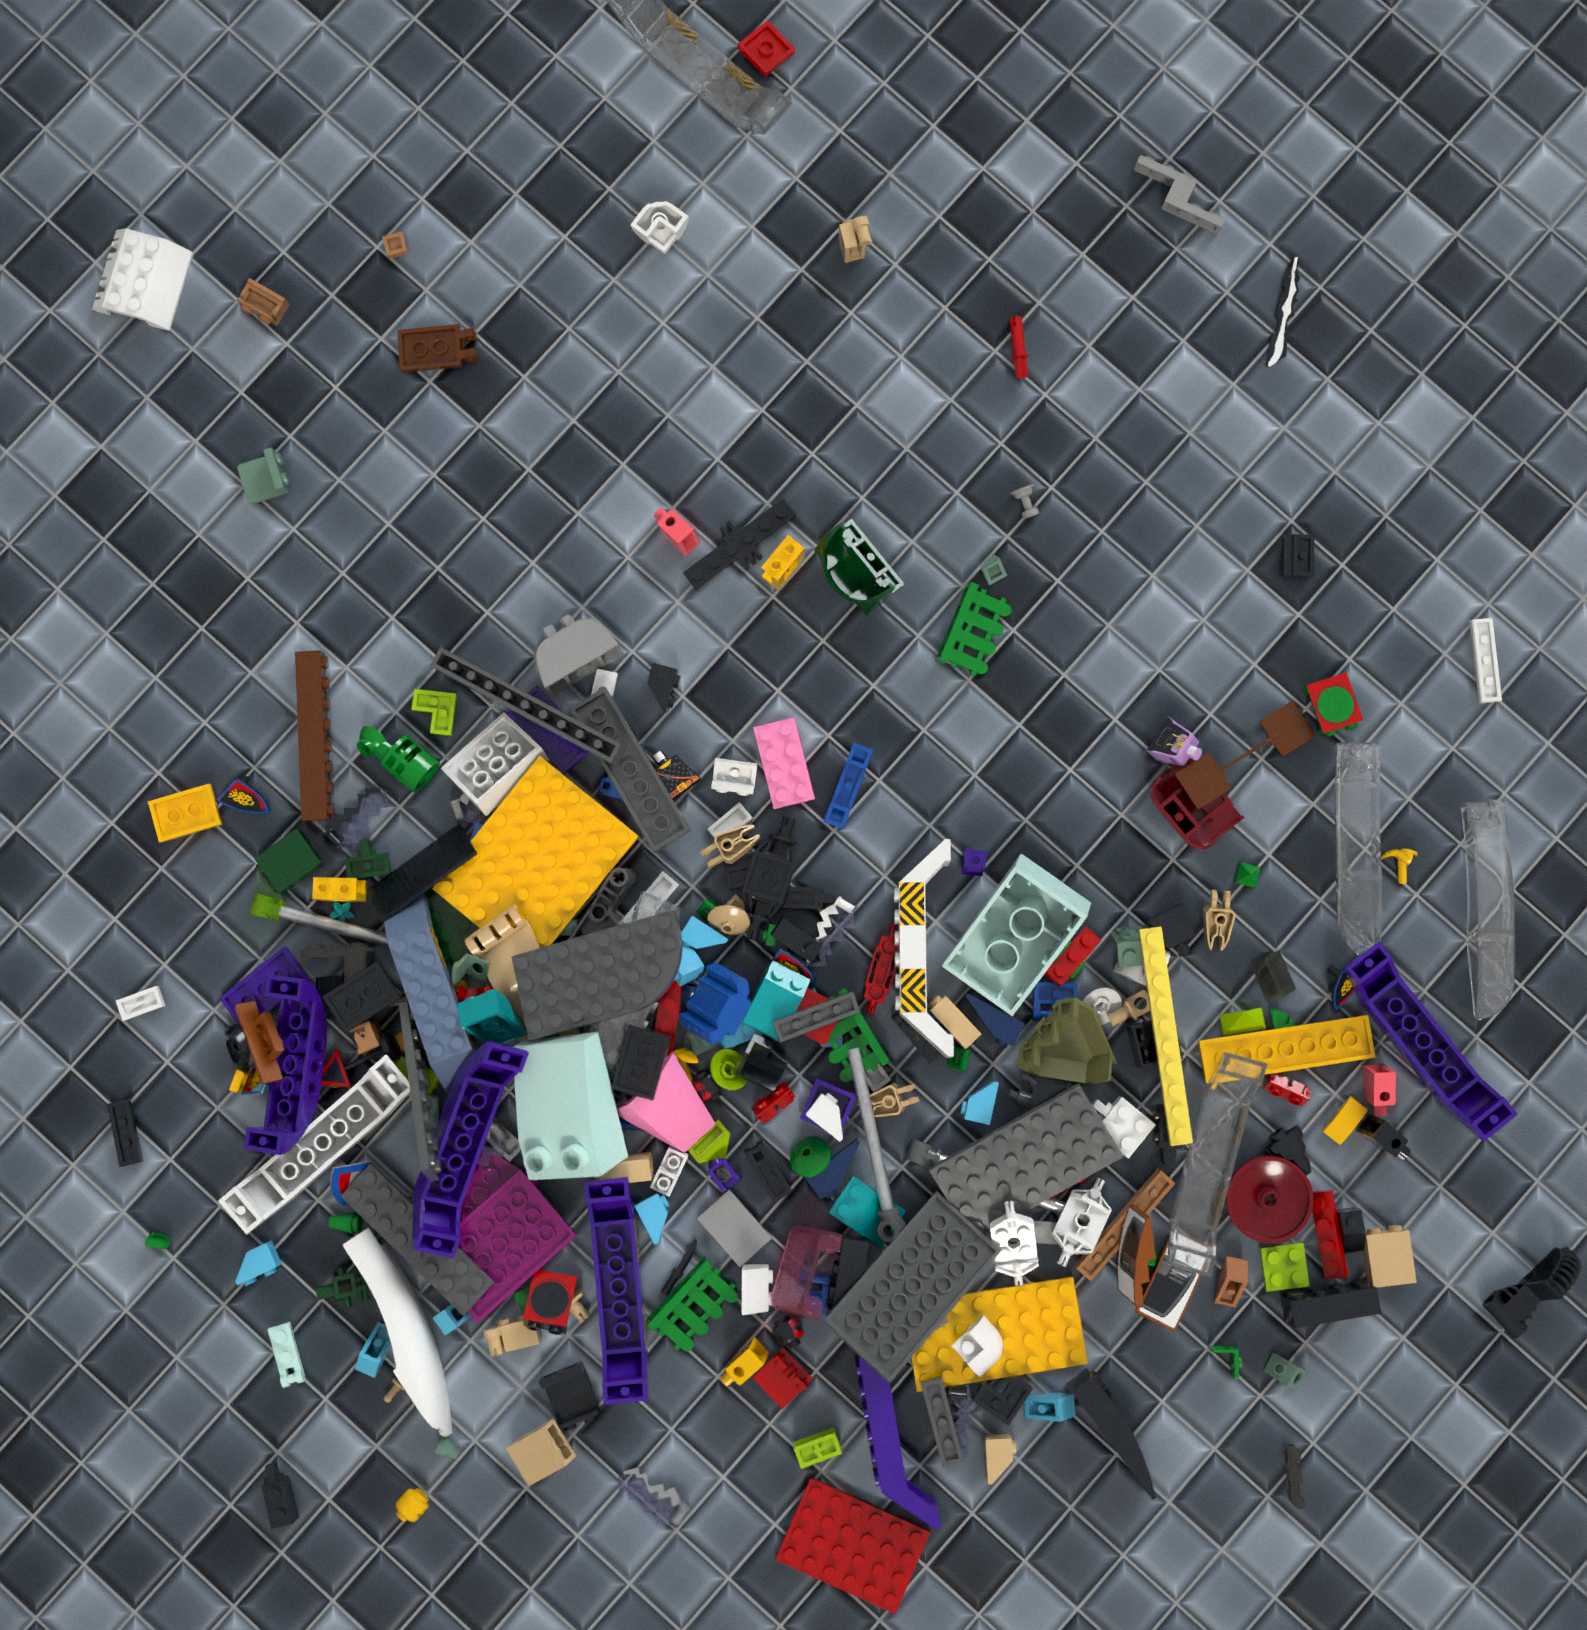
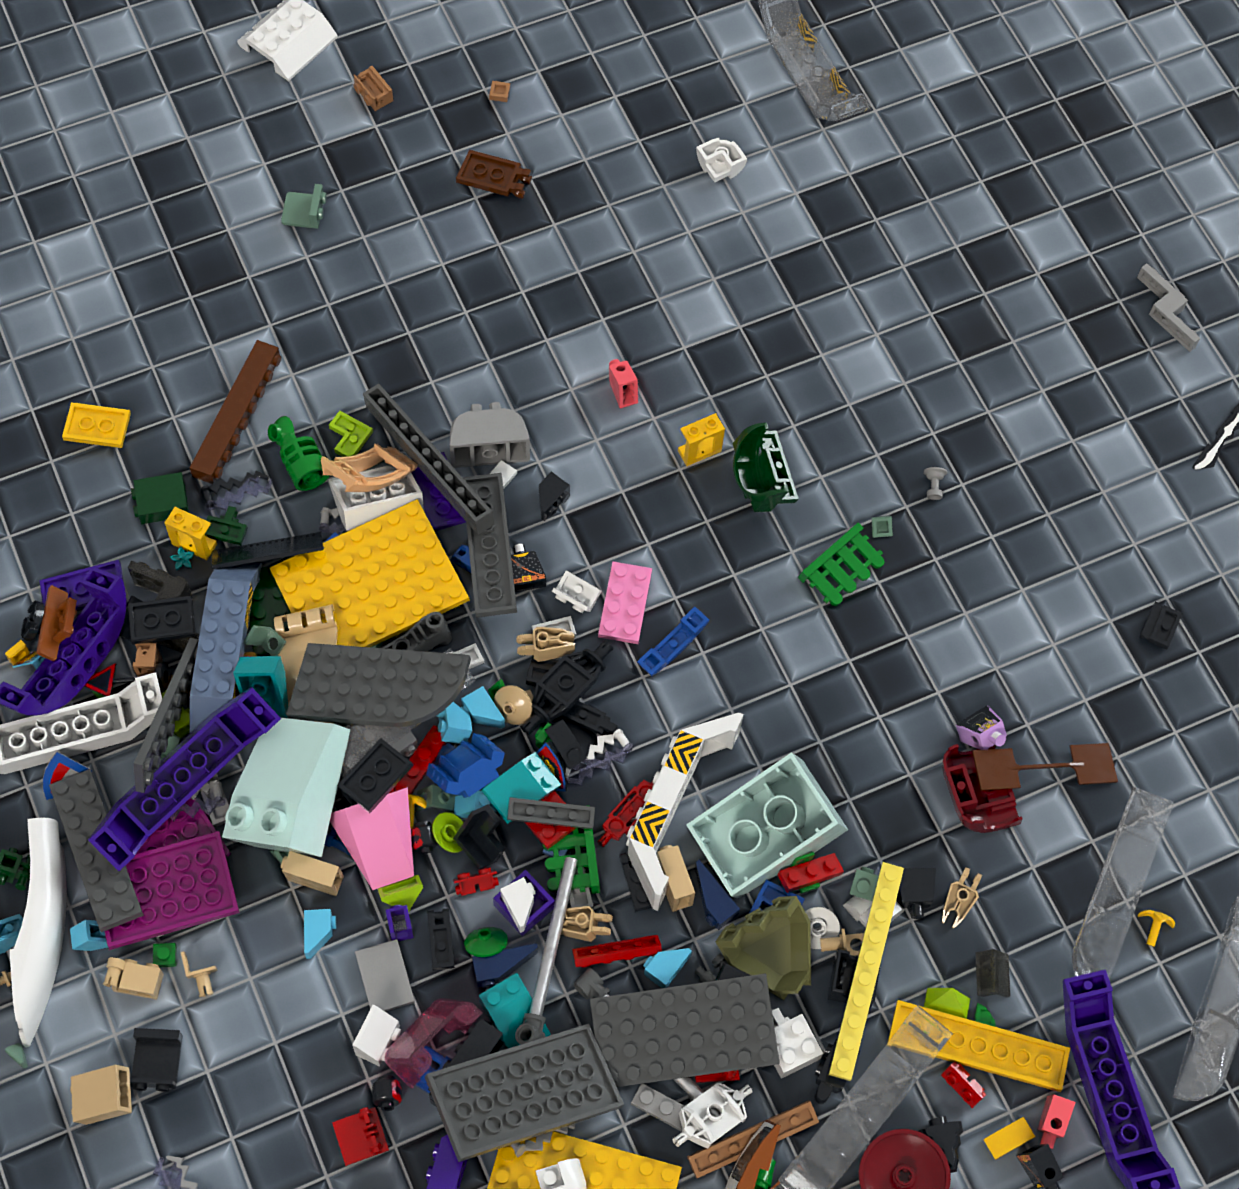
camera: 20 degrees right, 20 degrees down
(243, 797) = (151, 432): shield -> none
(269, 907) = (122, 525): flat silver piece -> none
(347, 1222) = (37, 810): green cone -> none
(449, 752) = (348, 468): none -> light nougat wedge
(549, 1302) = (182, 959): panel -> none
(618, 1290) = (253, 971): dark purple slope -> none
(669, 1171) = (351, 900): white slope -> none
(678, 1272) = (313, 993): black piece -> none
(681, 1309) = (298, 1028): green fence -> none
(739, 544) = (669, 417): black hinge -> none
(745, 1363) = (340, 1099): yellow torso -> none
(766, 48) = (867, 75): red plate -> none
(854, 238) = (876, 225): tan hinge -> none
(930, 1110) = (616, 951): none -> red plate
(960, 1059) = (665, 919): green slope -> none
(973, 862) = (756, 753): dark purple window -> none
(1018, 344) = (978, 371): red axle -> none
(1019, 1257) = (636, 1123): white plate -> none
(1247, 874) = (1005, 875): green slope -> none
(1334, 704) = (1144, 760): panel -> none
(1341, 987) = (1053, 1012): shield -> none

